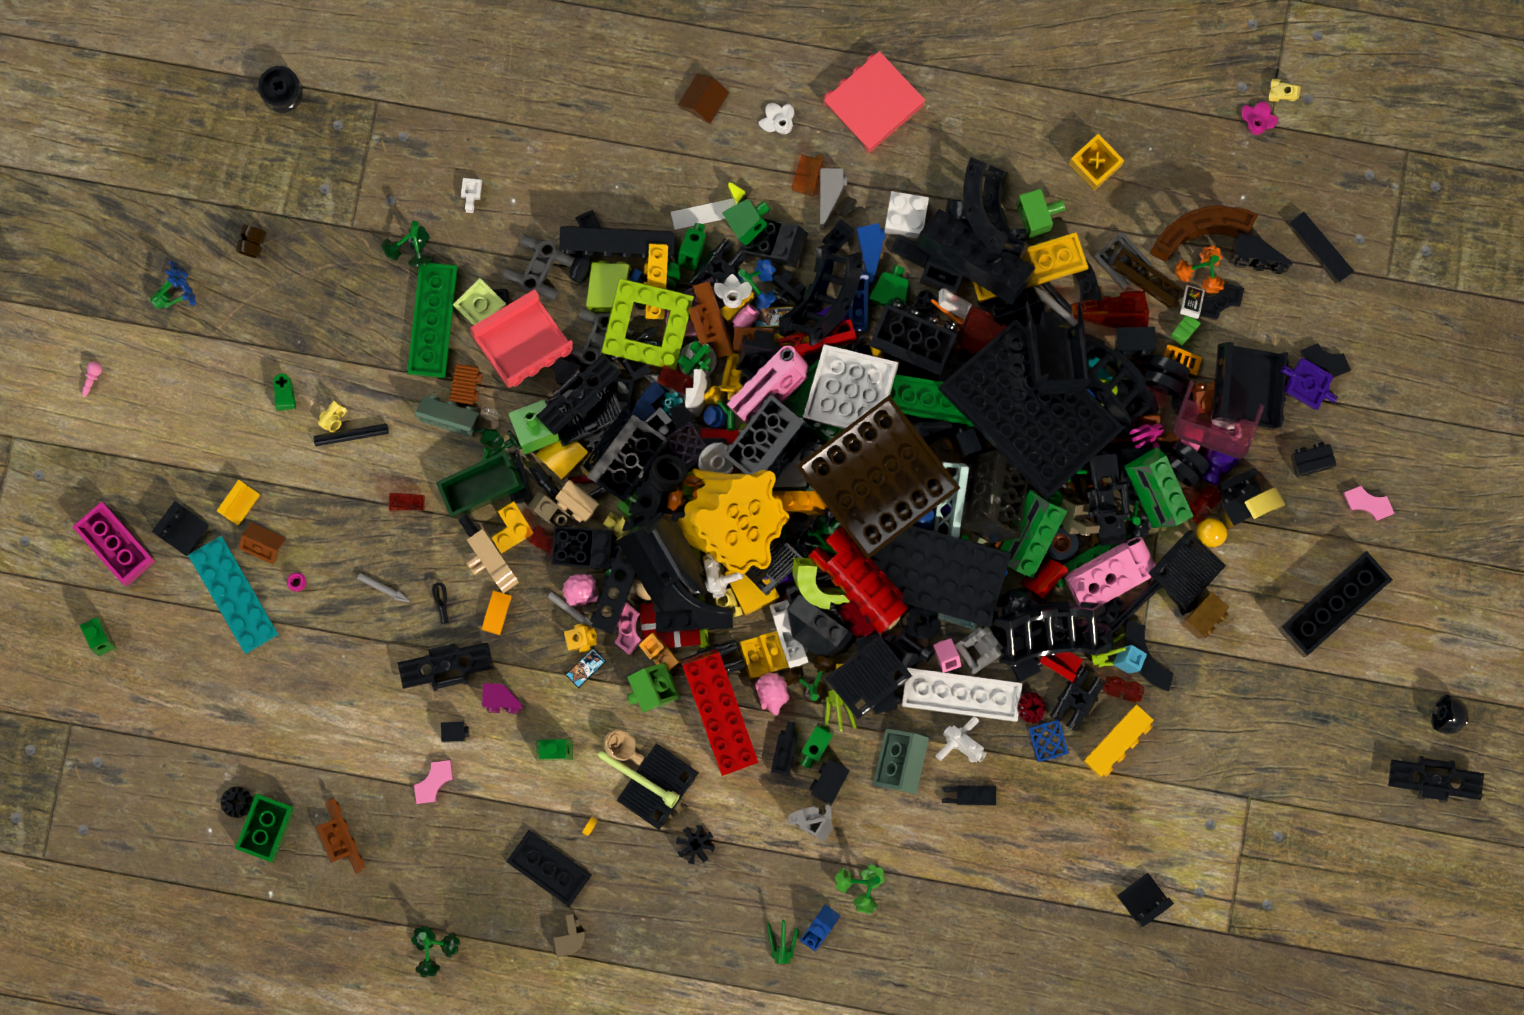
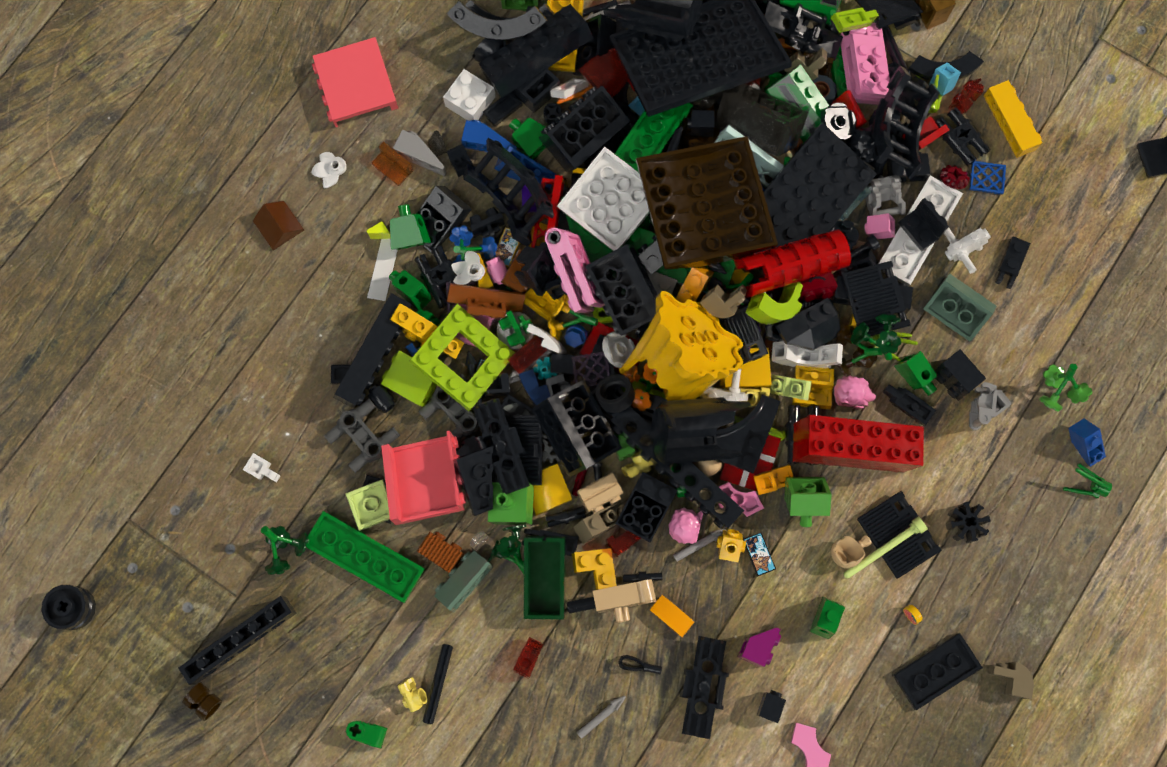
camera: 65 degrees left, 5 degrees down
(314, 246) = (237, 640): none -> black brick
(520, 572) = (642, 576): none -> black bar
(538, 386) = (476, 476): none -> black wing
(752, 632) = (790, 387): none -> yellowish green slope
(792, 532) = (721, 304): none -> dark tan brick
(825, 698) = (887, 341): none -> dark green plant
(960, 692) = (924, 225): none -> black bracket
(1025, 581) = (841, 113): none -> plate
(1139, 543) = (853, 19): none -> lime hinge

